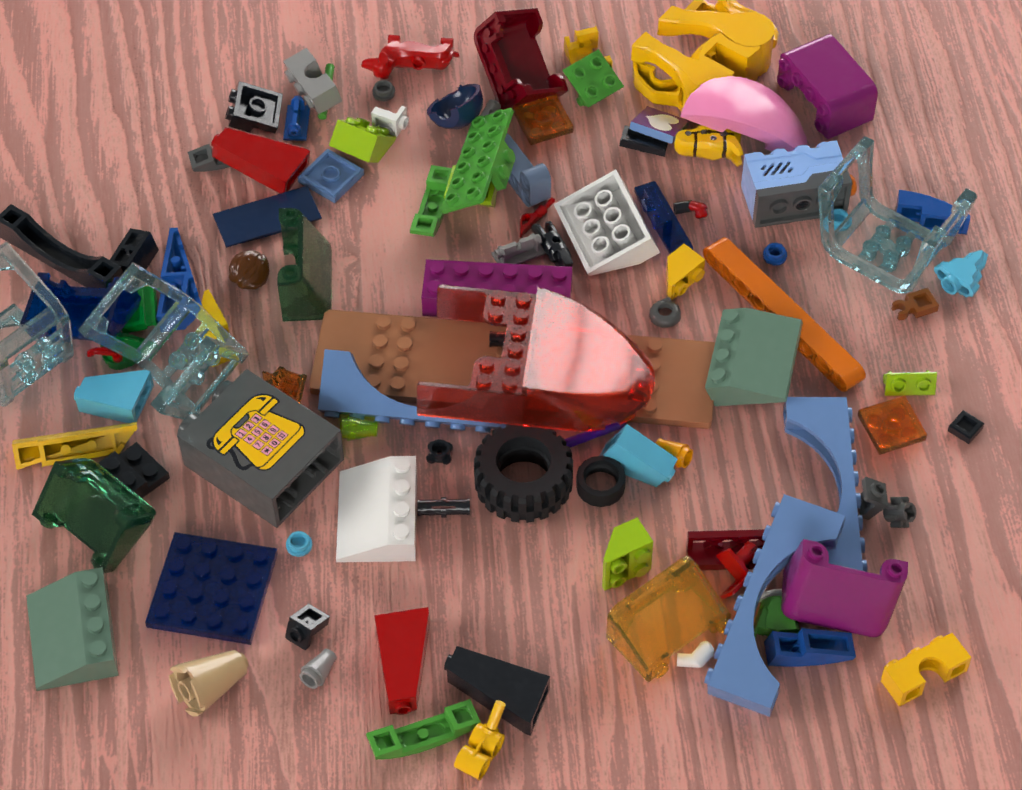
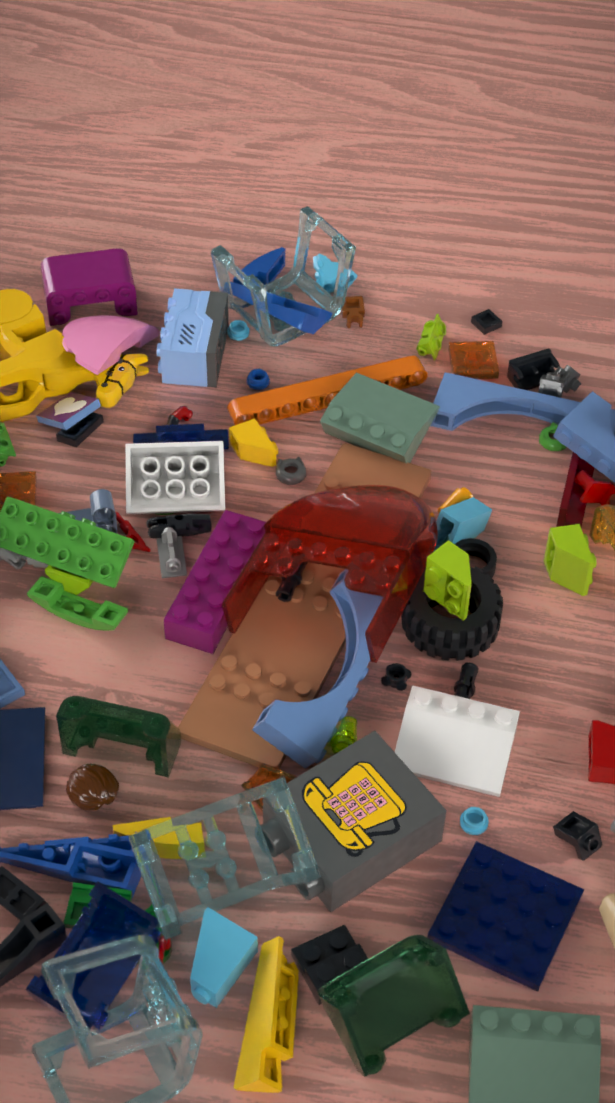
camera: 75 degrees left, 5 degrees down
(521, 440) = (449, 578): none -> lime slope
(872, 249) = (294, 313): none -> blue wedge
(902, 479) = (527, 370): none -> black hinge

